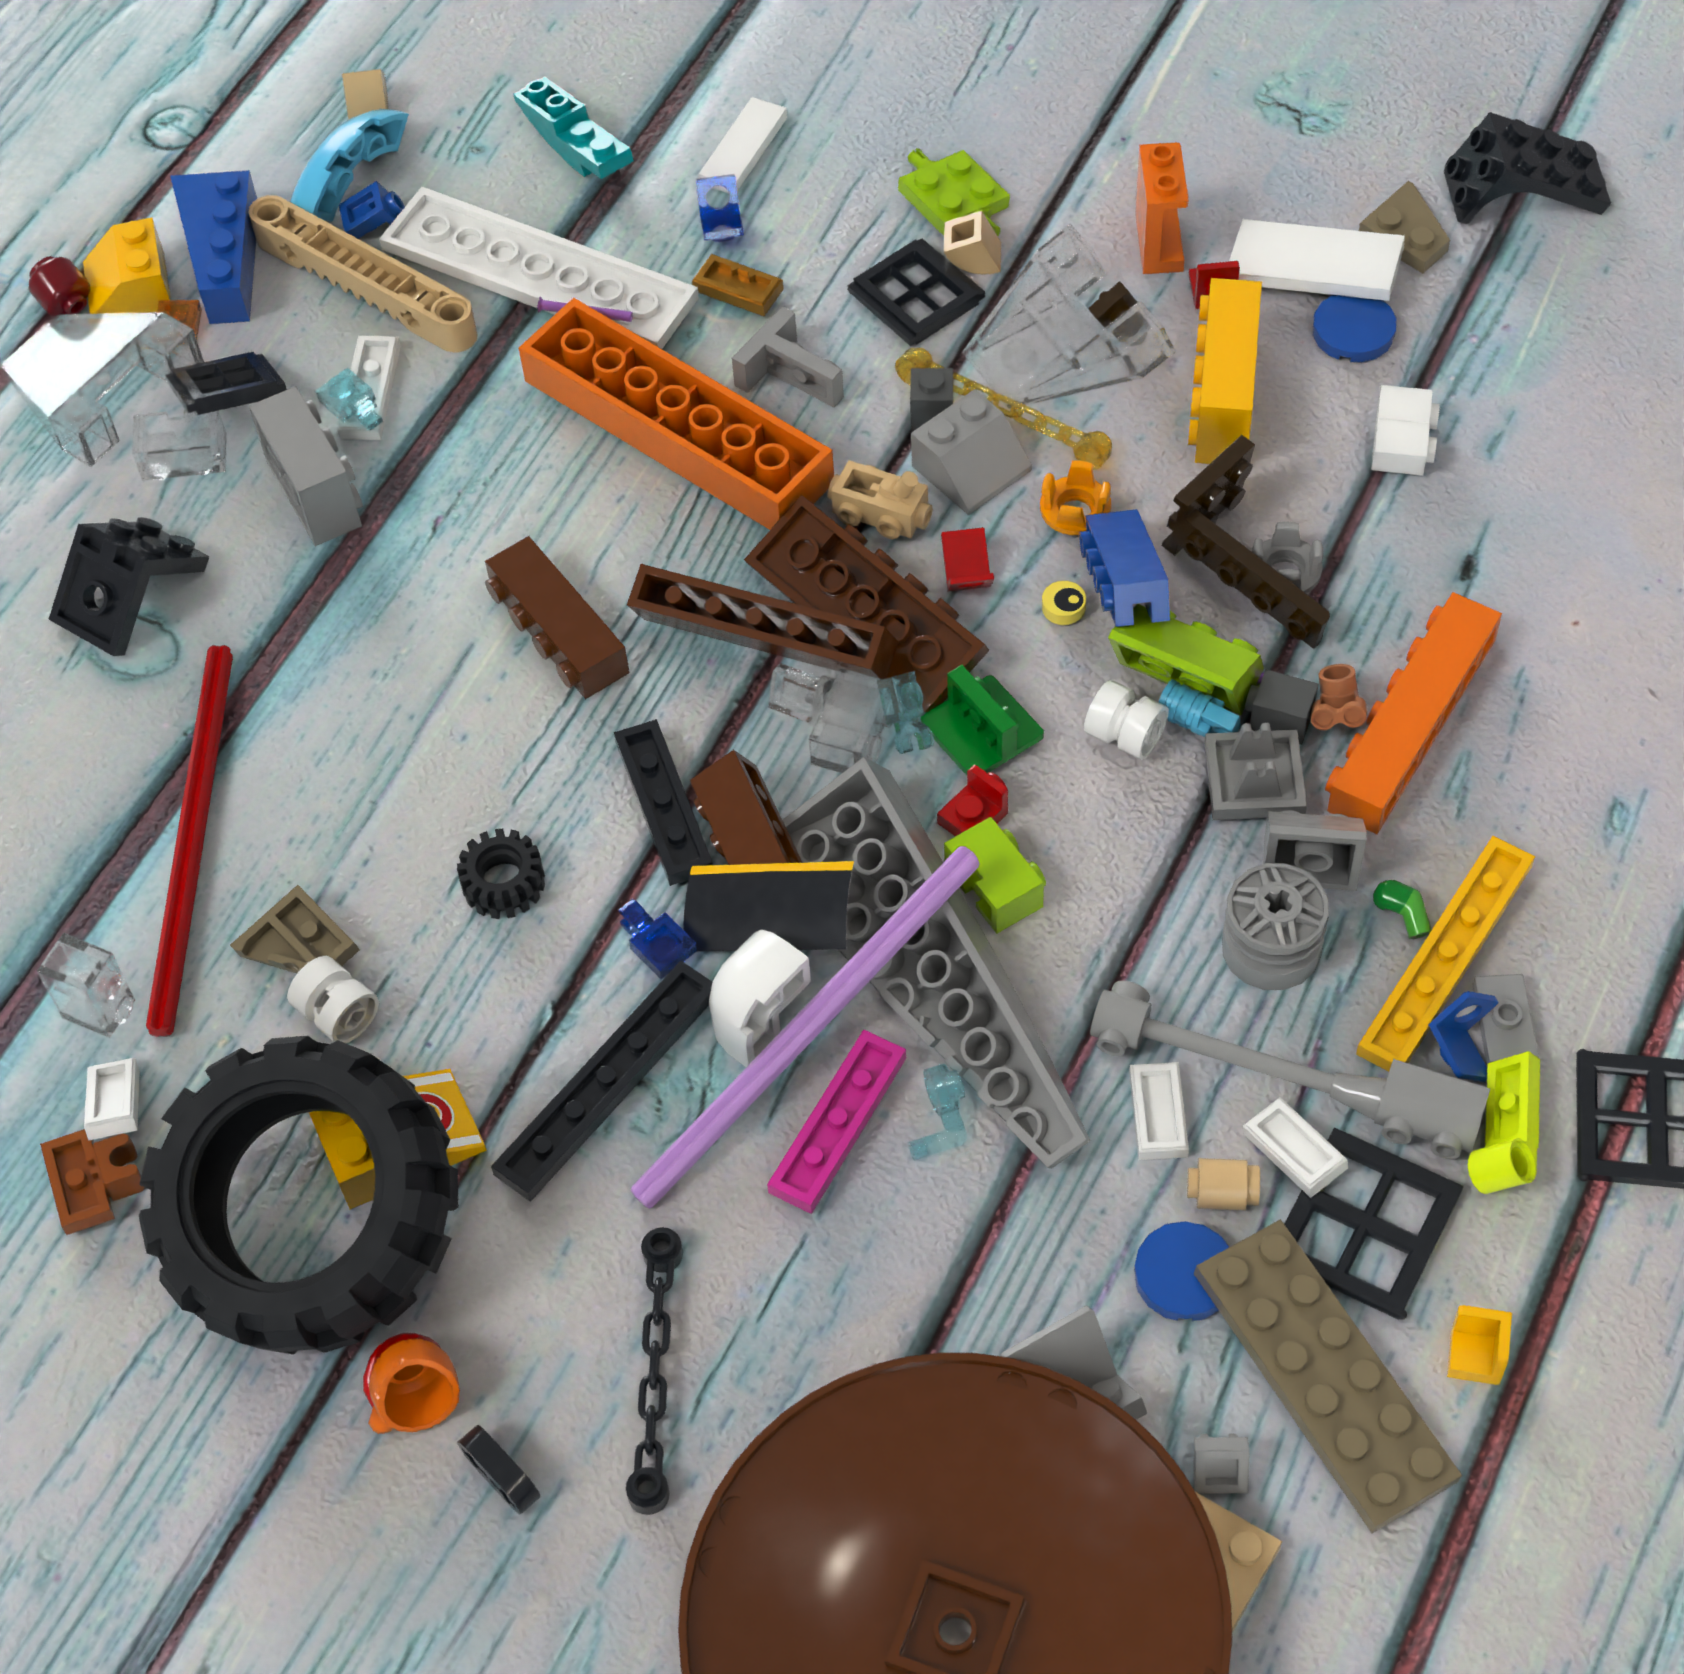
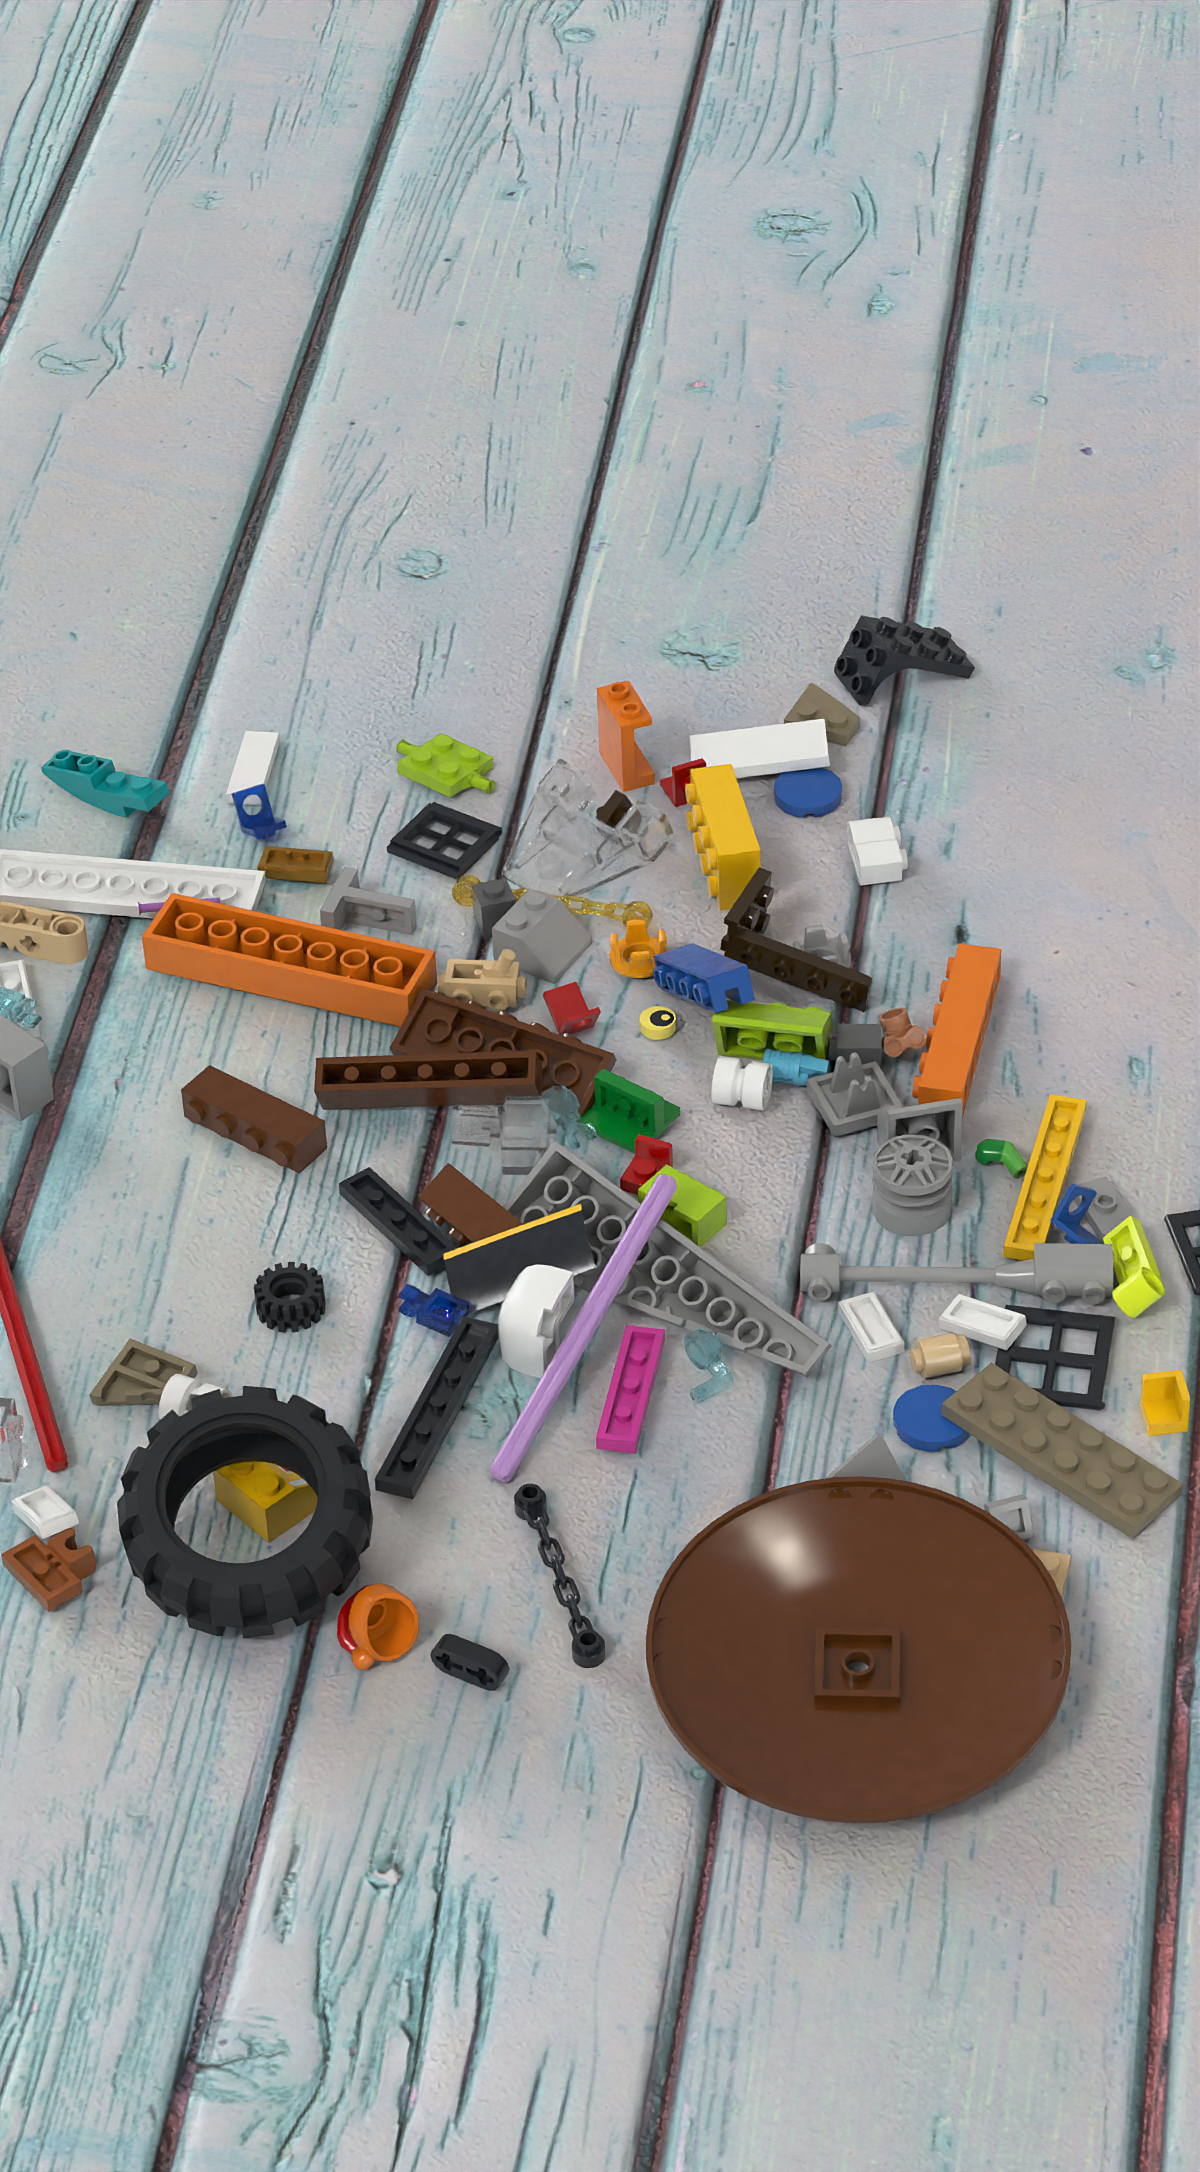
camera: 20 degrees left, 15 degrees down
(972, 244) = (478, 796): tan brick -> none

